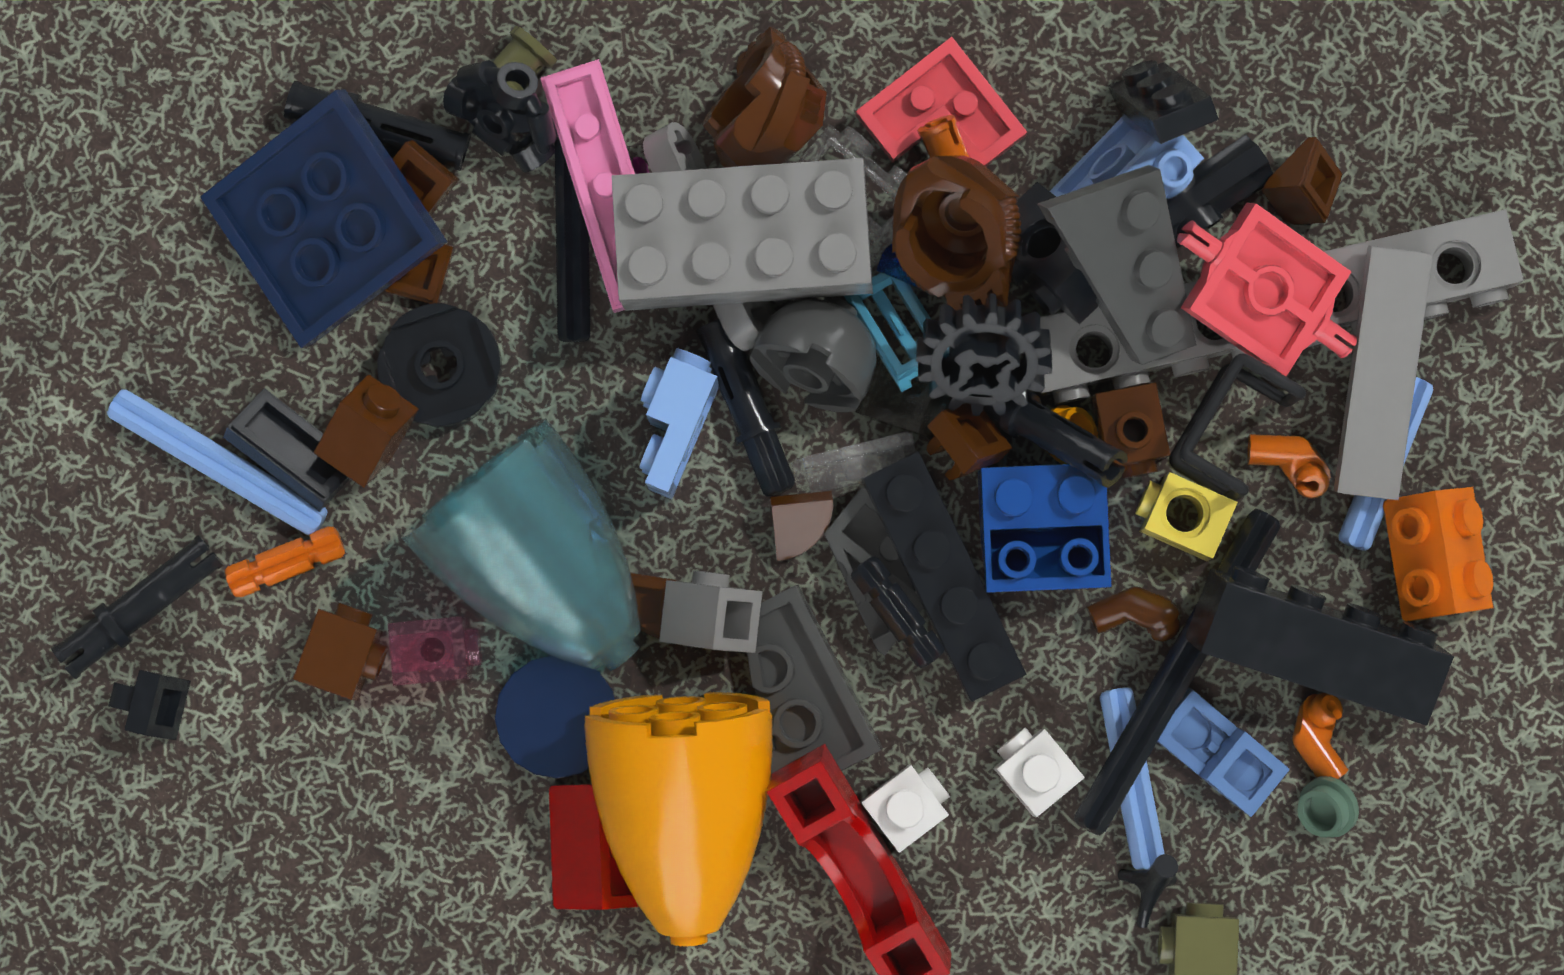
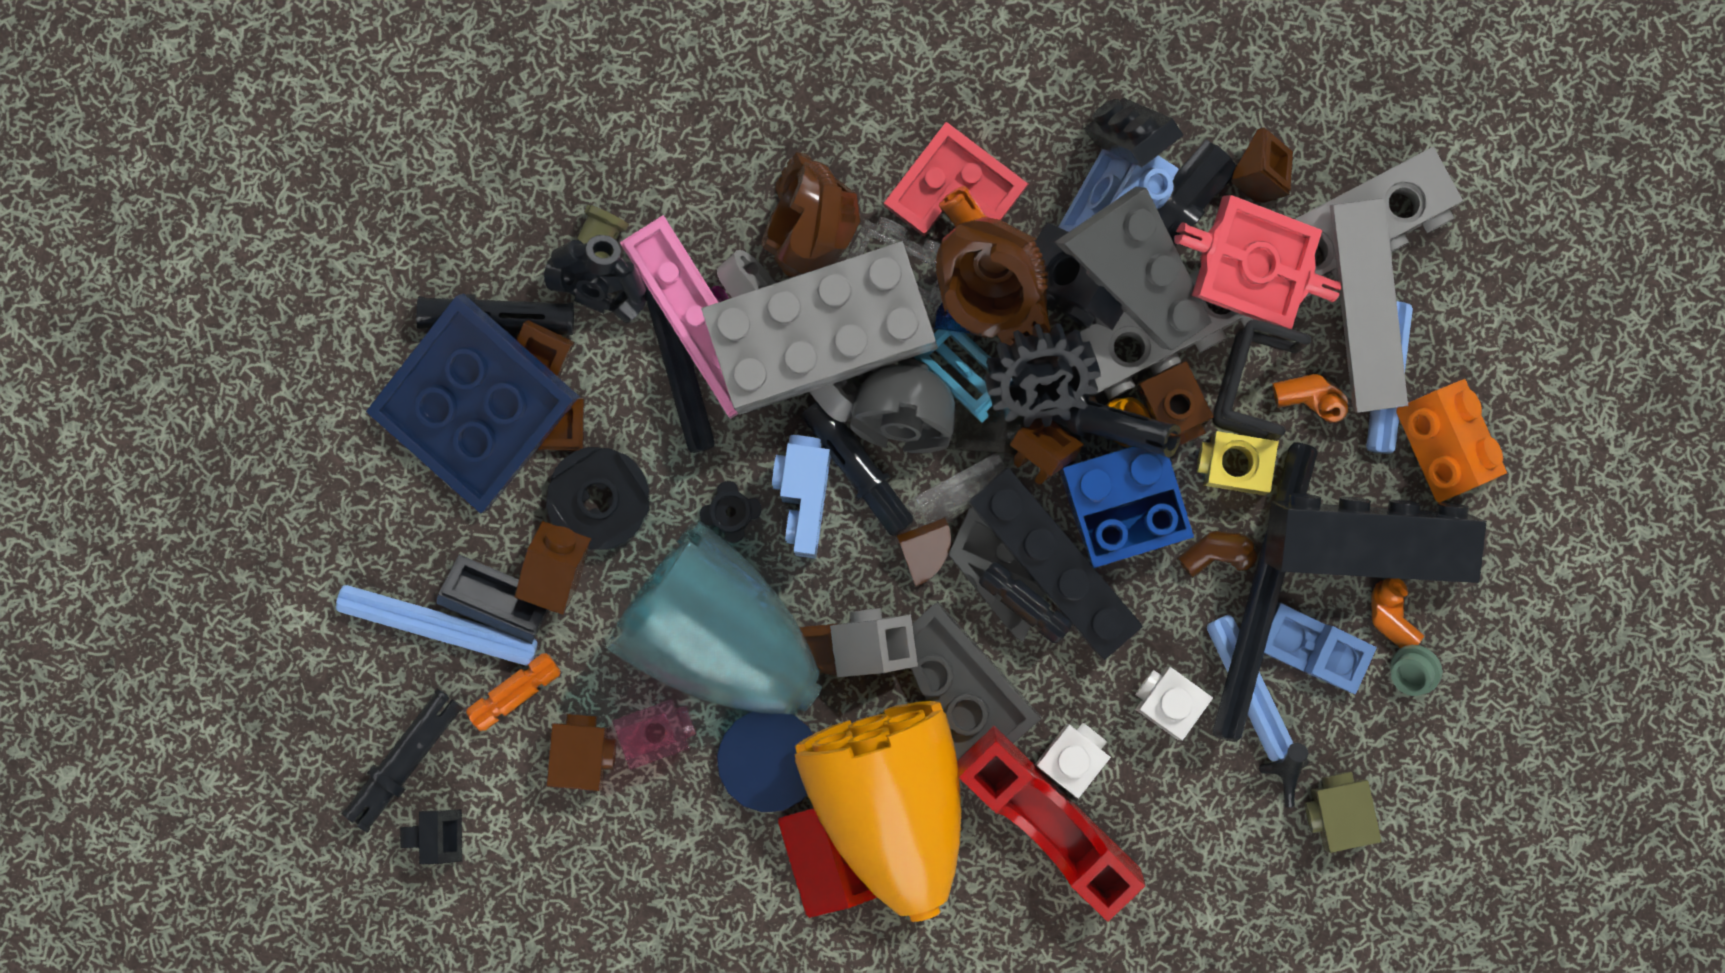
camera: 15 degrees left, 0 degrees up
(591, 403) = (727, 497): none -> black plate

